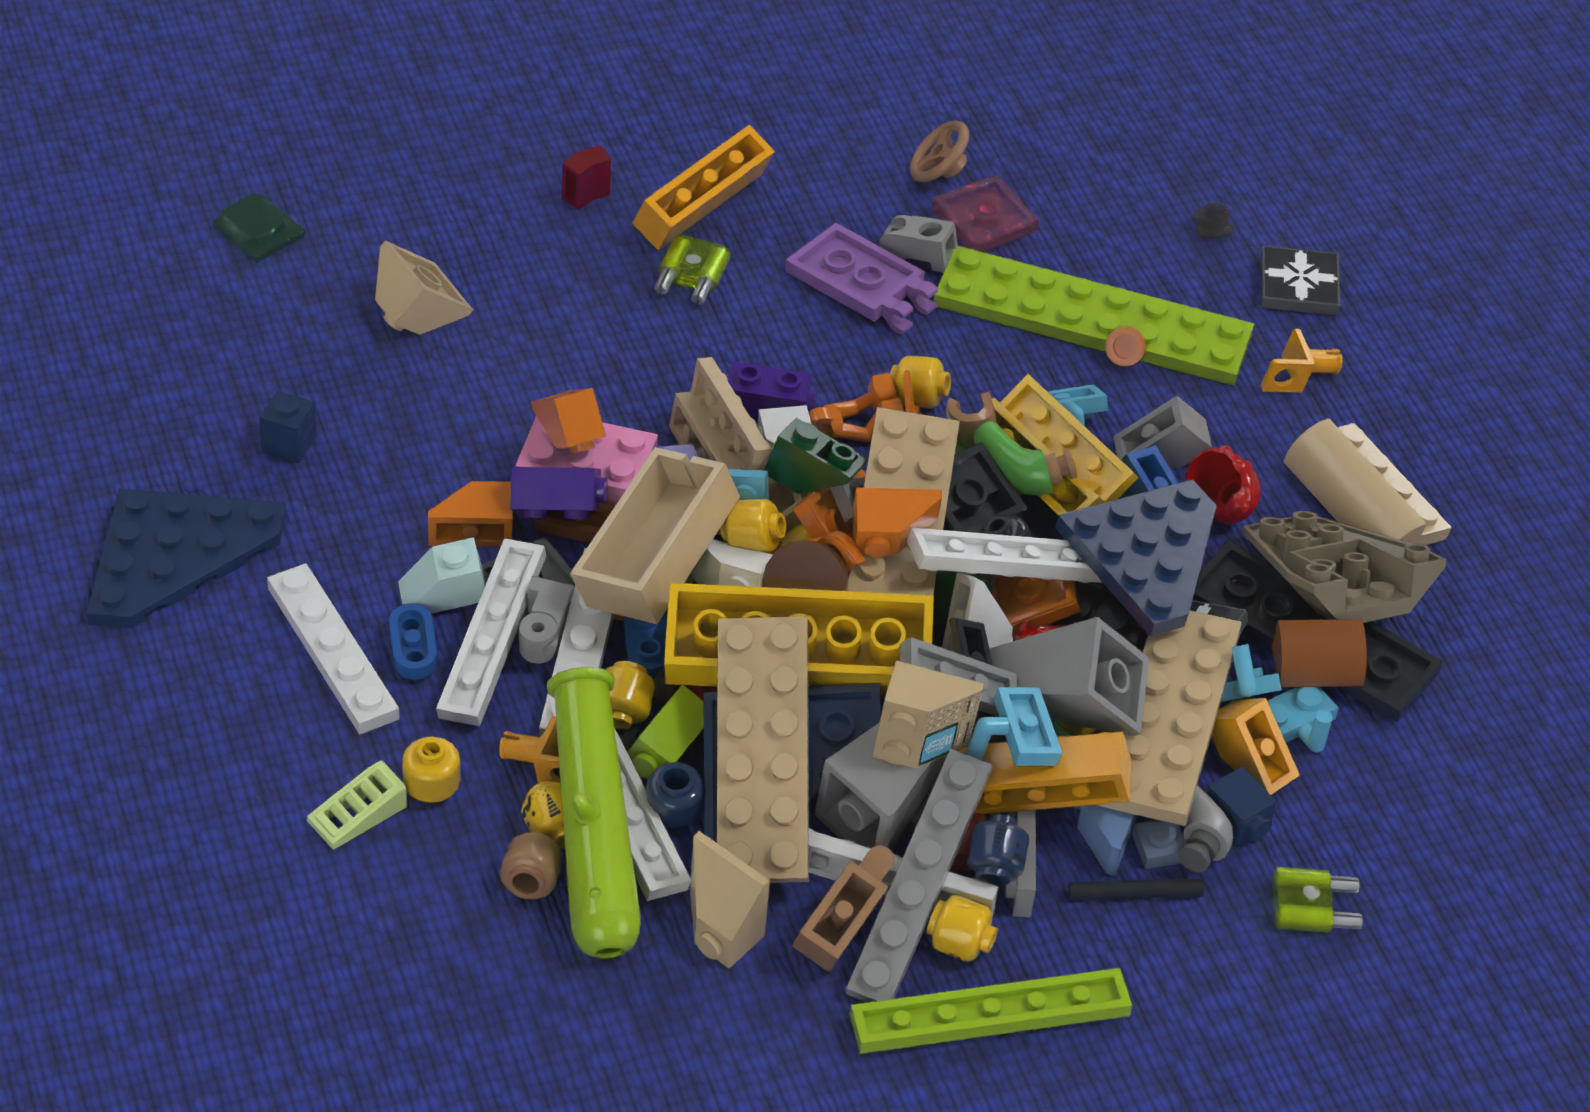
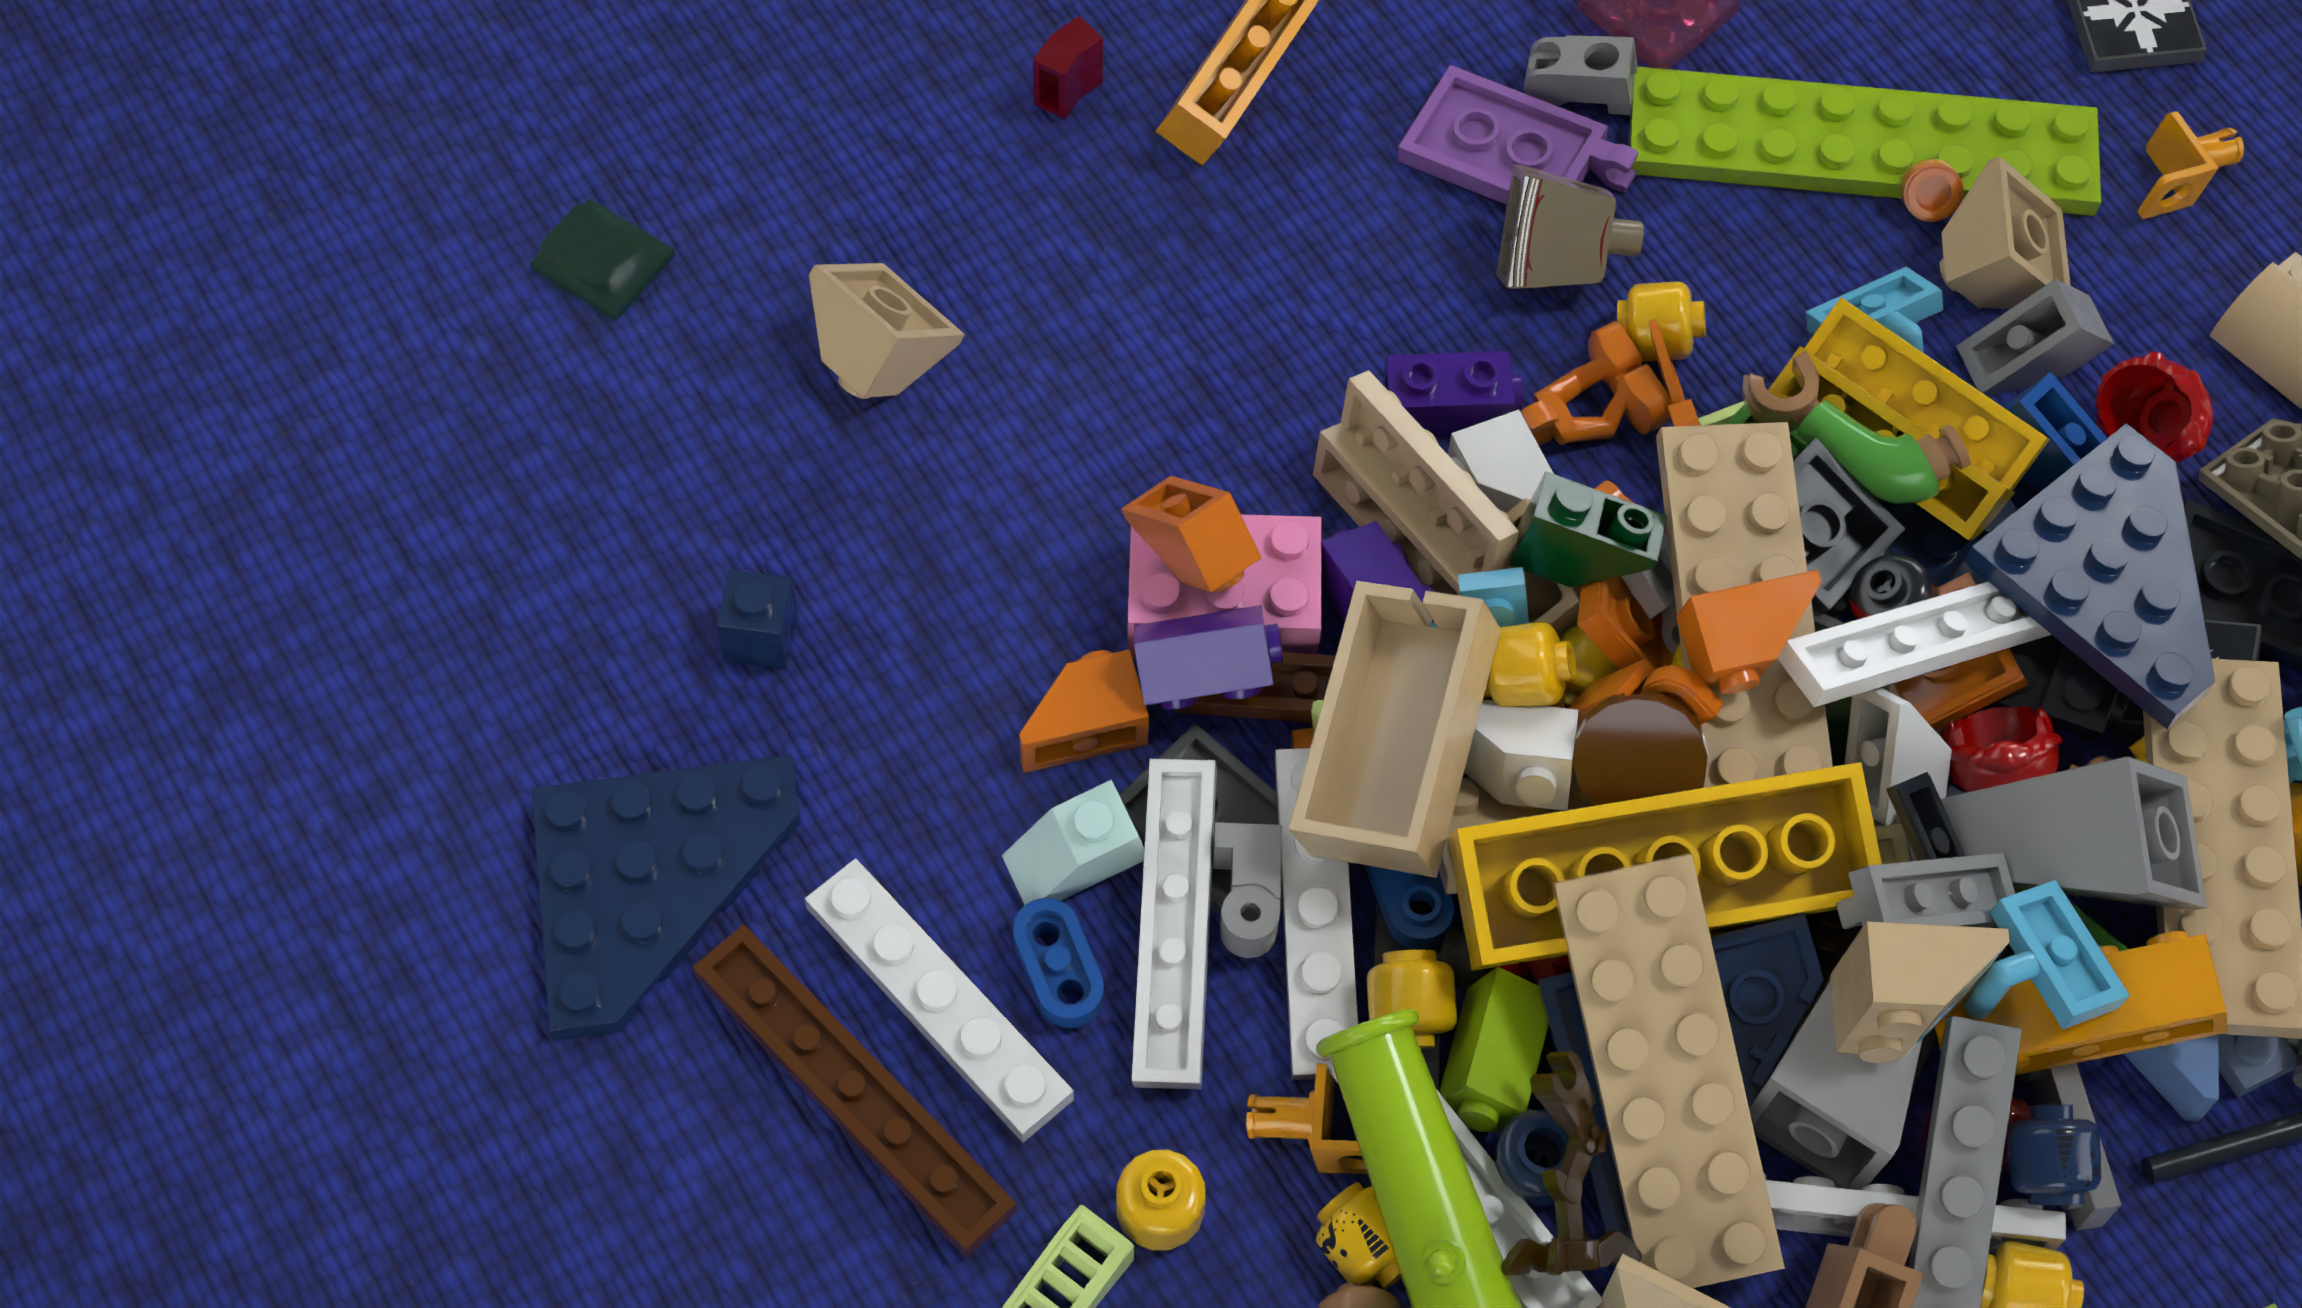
camera: 10 degrees left, 15 degrees up
(264, 681) = (855, 1090): none -> reddish brown plate
(673, 834) = (1569, 1103): none -> dark brown piece
(693, 265) = (1266, 184): clear neon green piece -> none
(870, 318) = (1560, 231): none -> dark tan torso
(1159, 373) = (2003, 240): none -> tan slope

